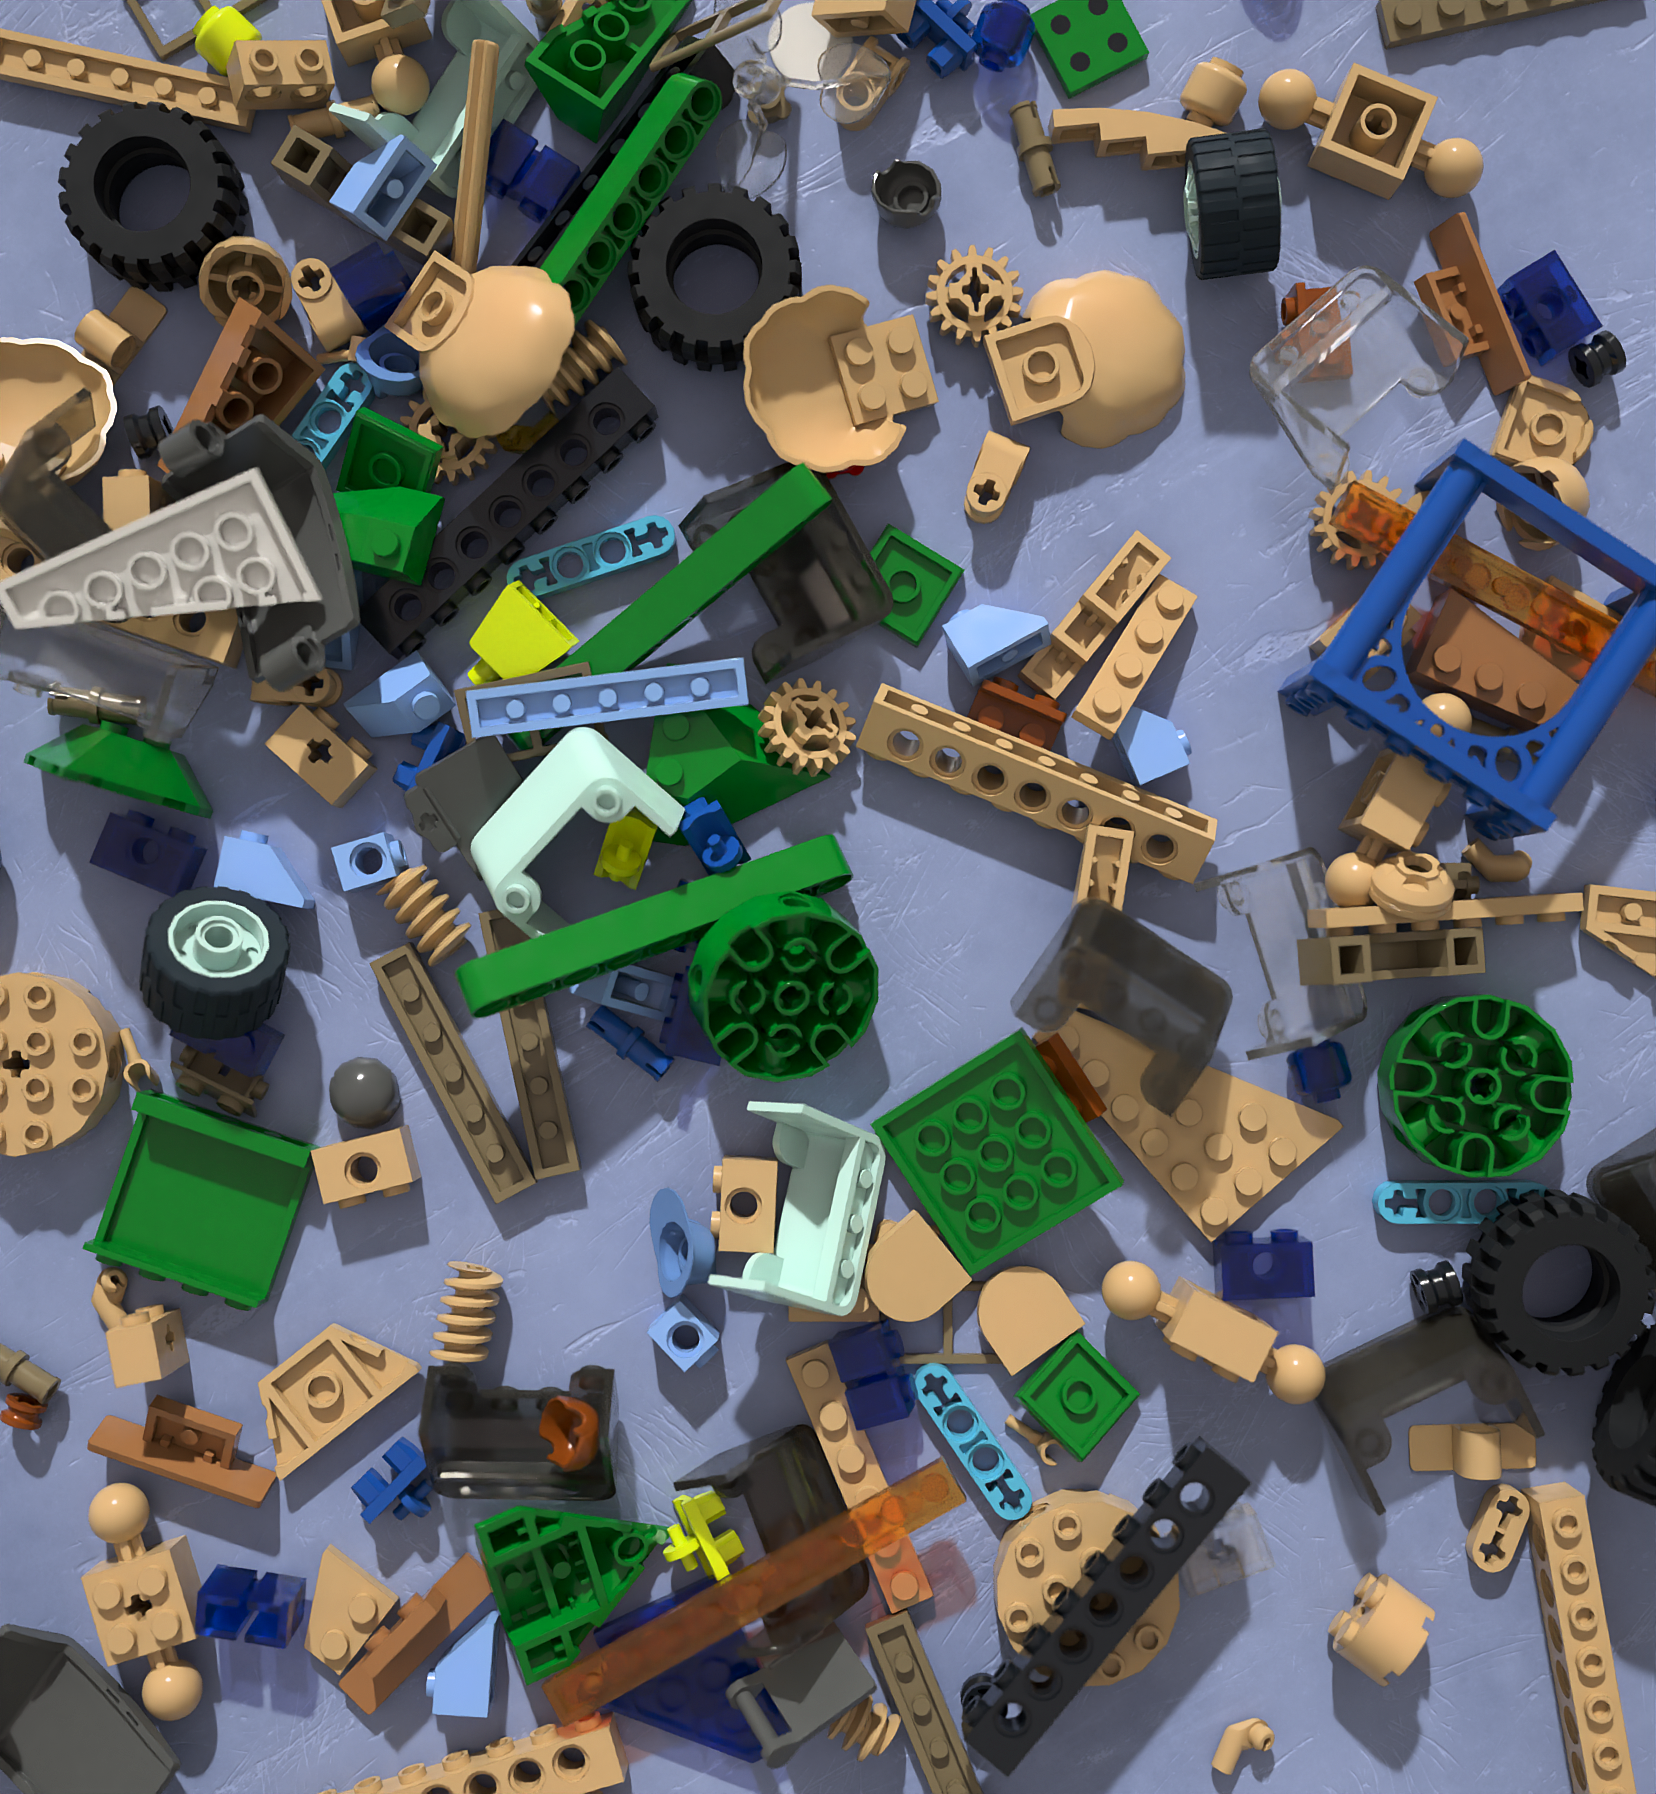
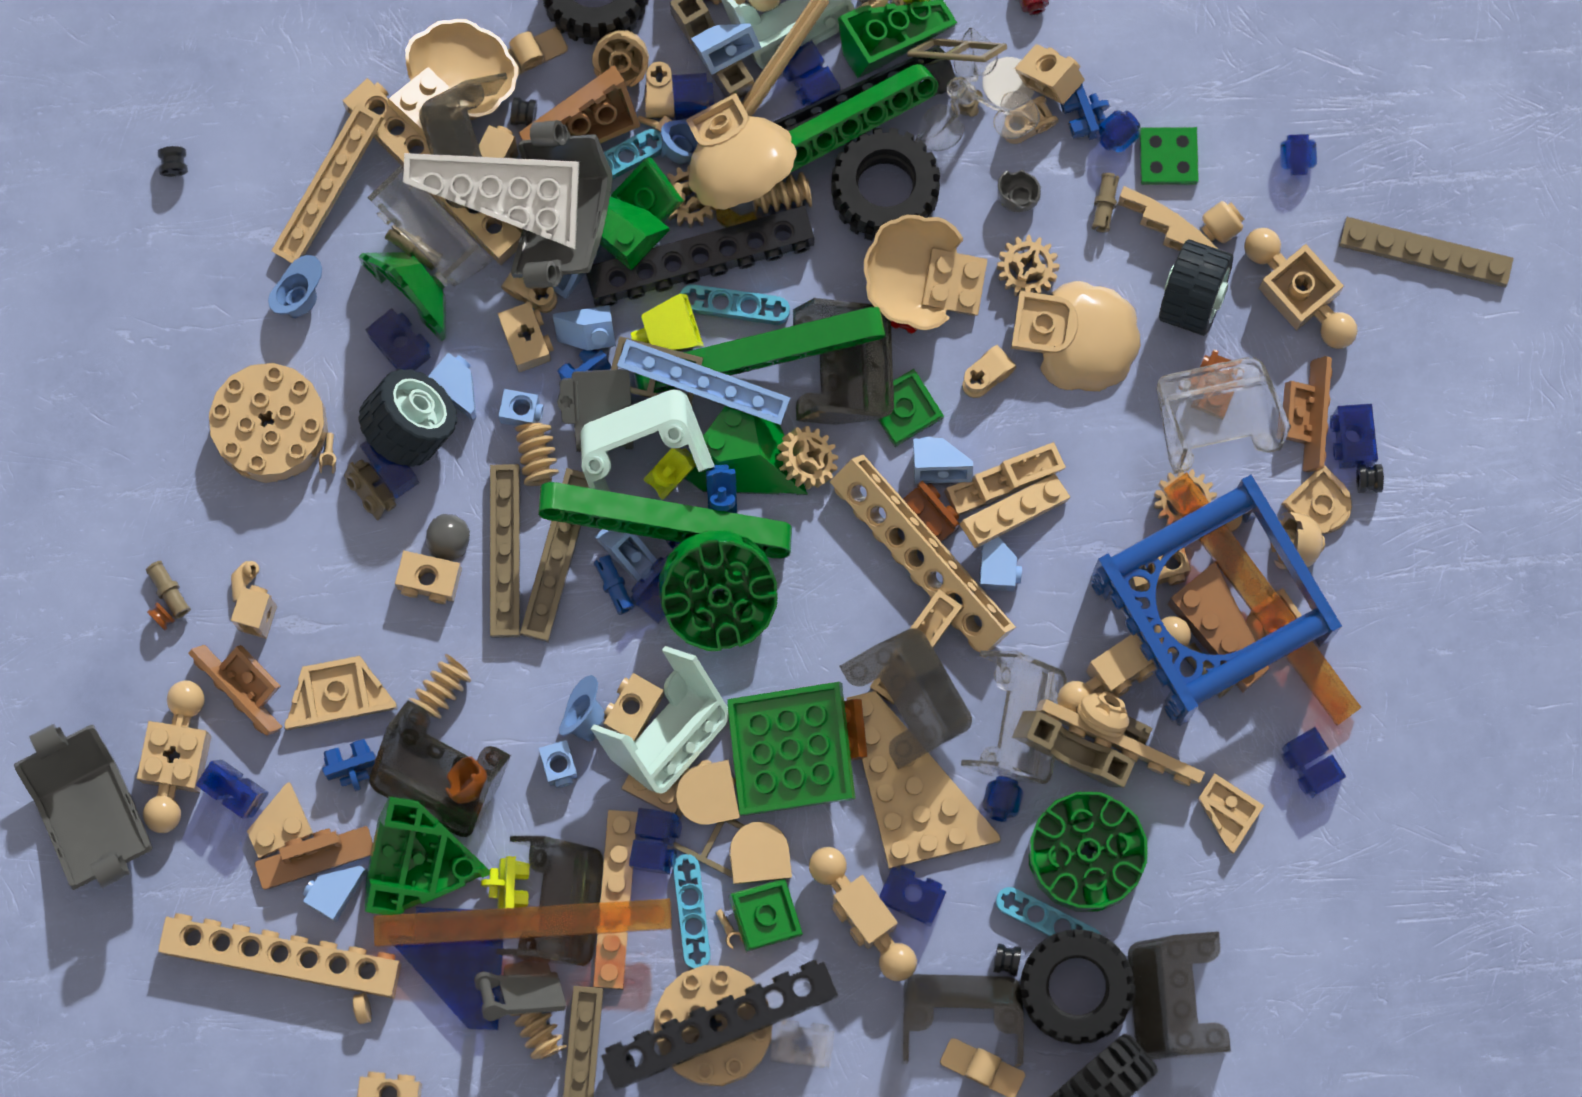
camera: 30 degrees right, 10 degrees down
(203, 1200) = (326, 550): green panel -> none
(1498, 867) = (1166, 738): tan arm -> none

